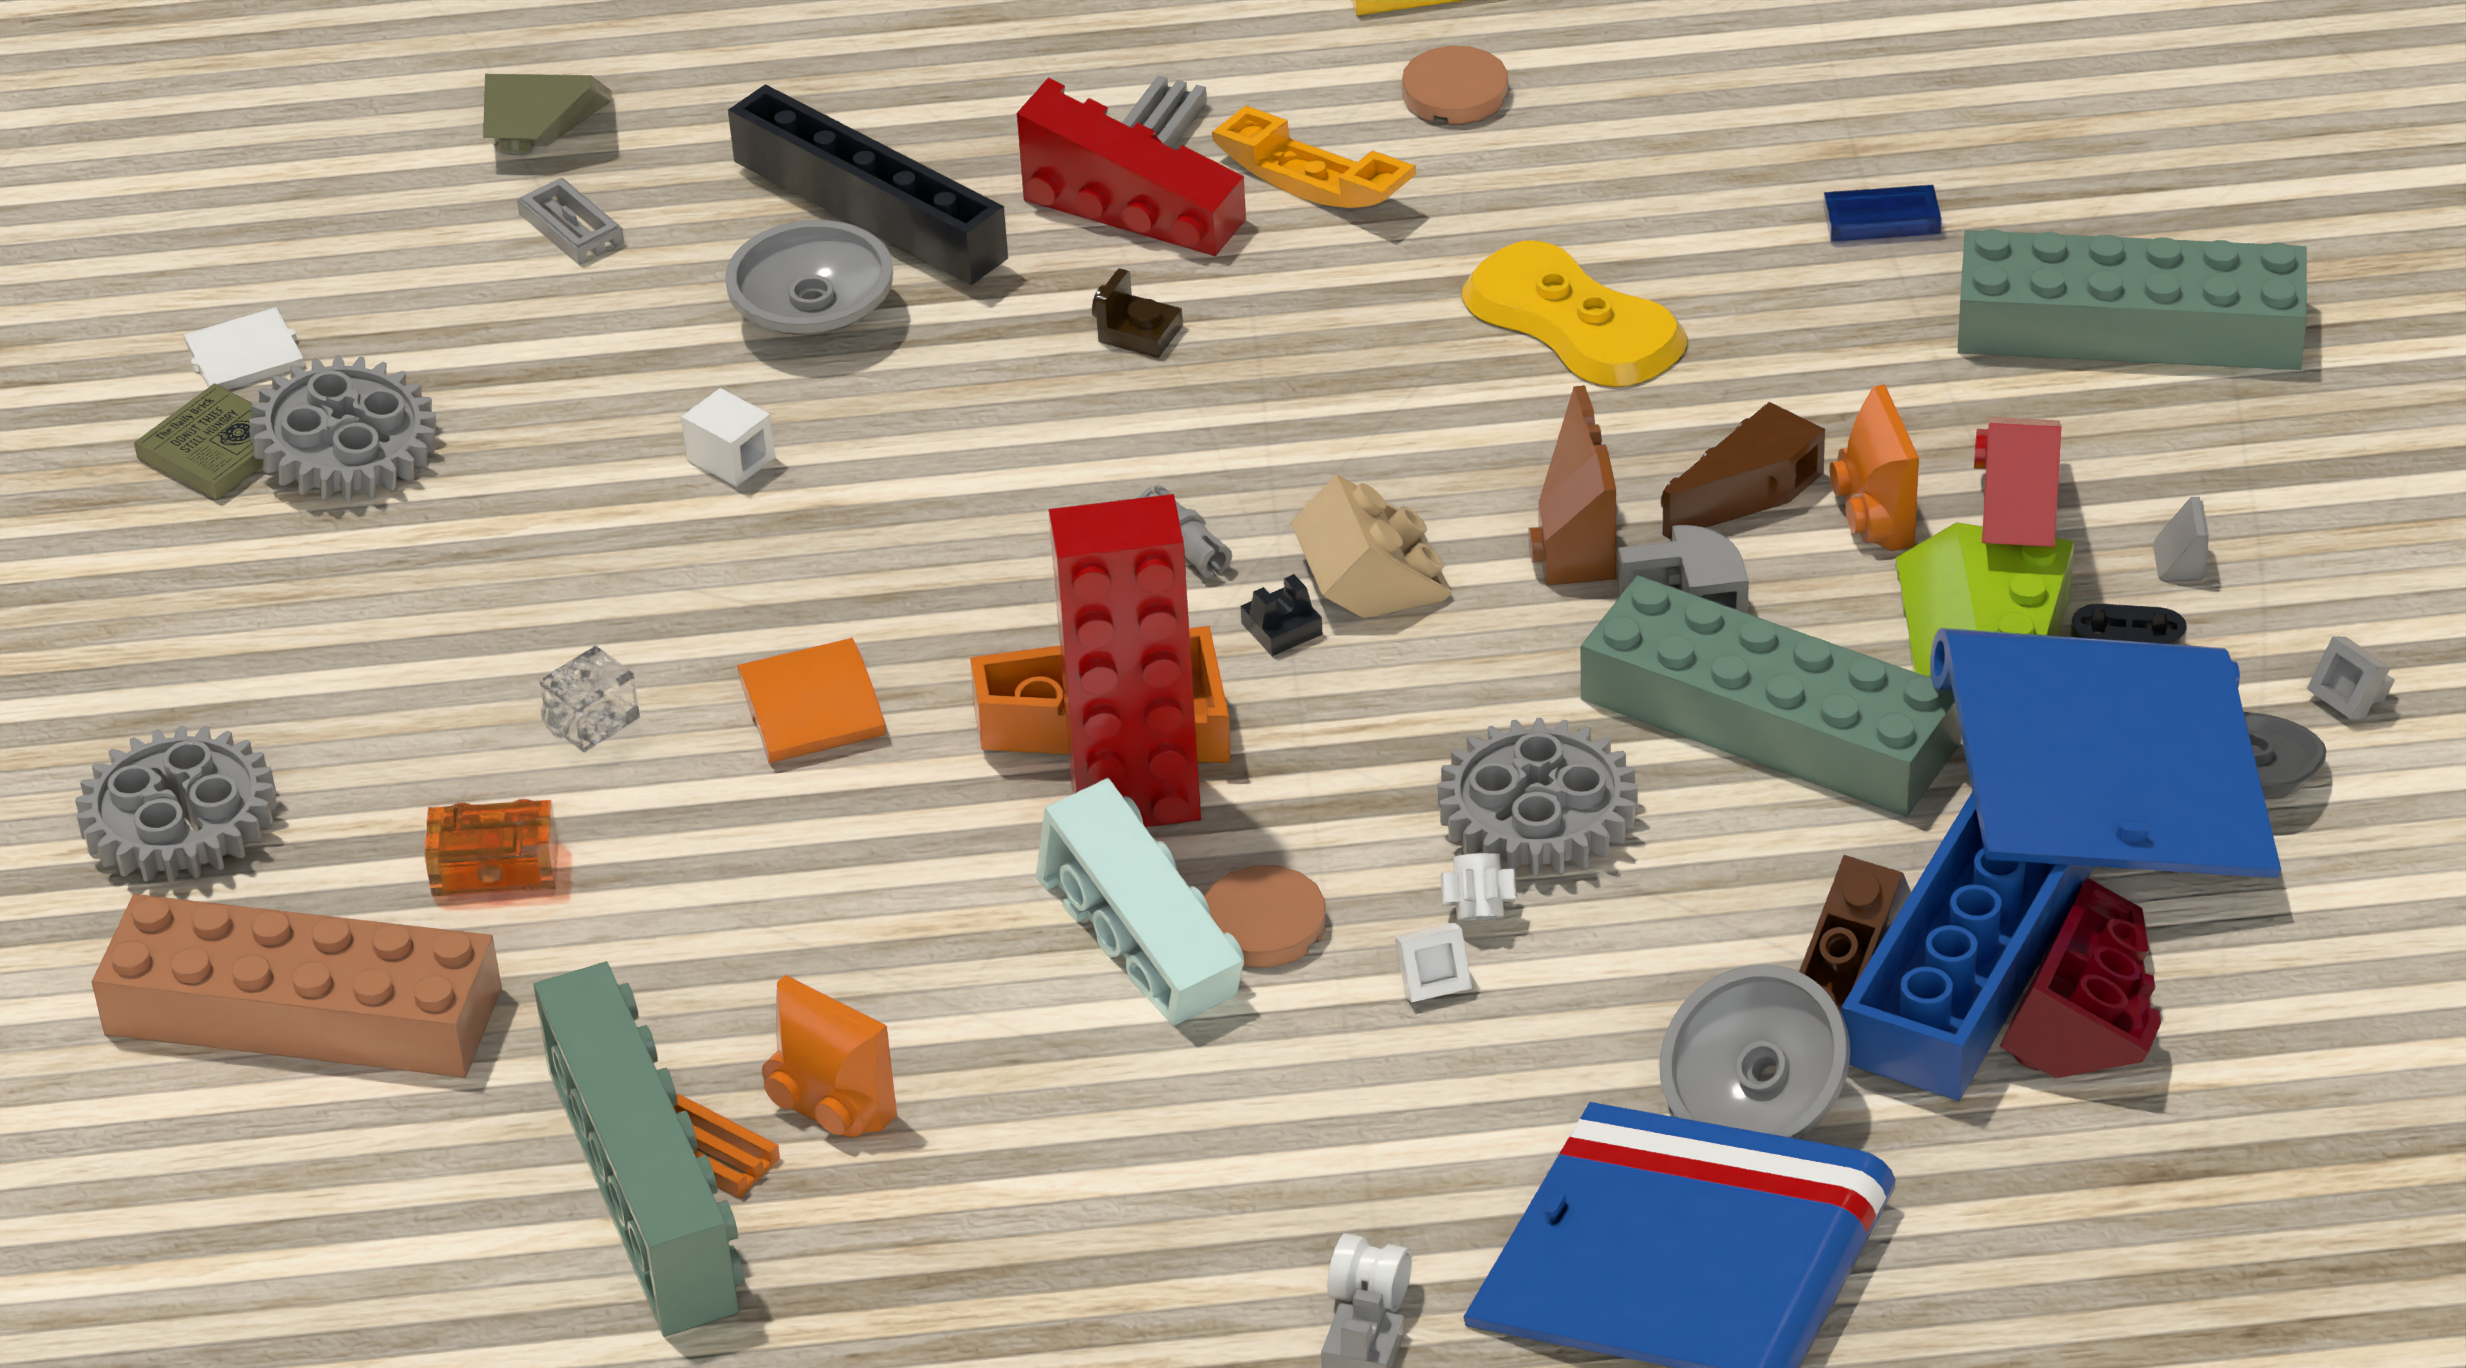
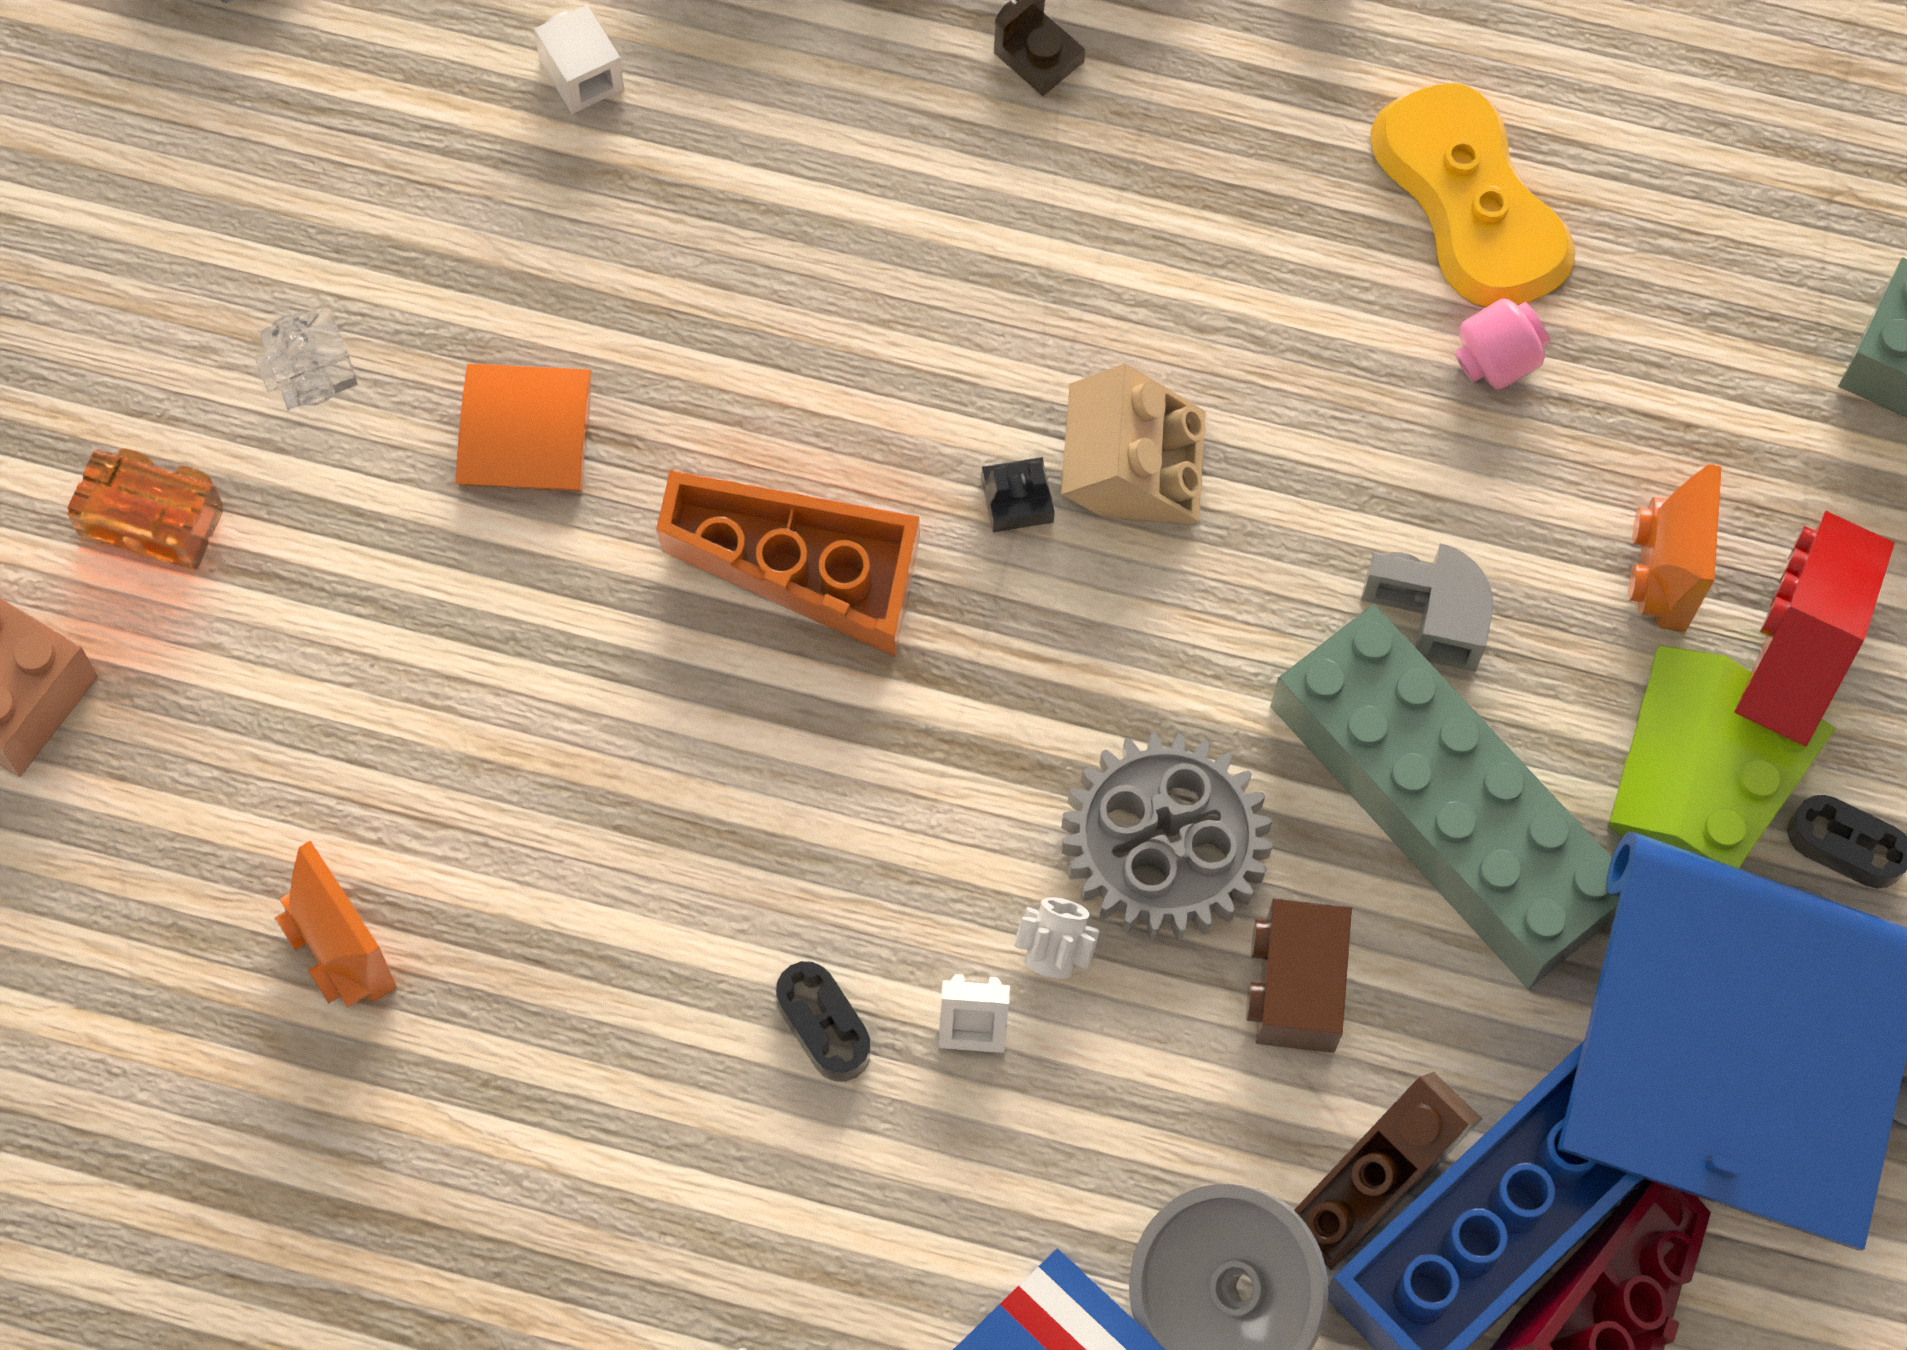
camera: 15 degrees right, 25 degrees up
(640, 1148) = (111, 970): sand green brick -> none
(730, 1143) = (175, 916): orange tile -> none
(1127, 653) = (778, 589): red brick -> none
(1137, 902) = (717, 838): light aqua wedge -> none
(1199, 543) = (968, 344): light grey pin -> none
(1269, 913) = (841, 877): nougat tile -> none
(1301, 1011) = (810, 1029): none -> black beam
(1577, 503) = (1359, 467): dark orange wedge -> none
(1654, 394) = (1502, 344): none -> bright pink head
(1706, 851) = (1301, 975): none -> reddish brown brick
(1748, 472) = (1562, 482): reddish brown slope -> none
(1882, 213) = (1838, 174): clear blue tile -> none

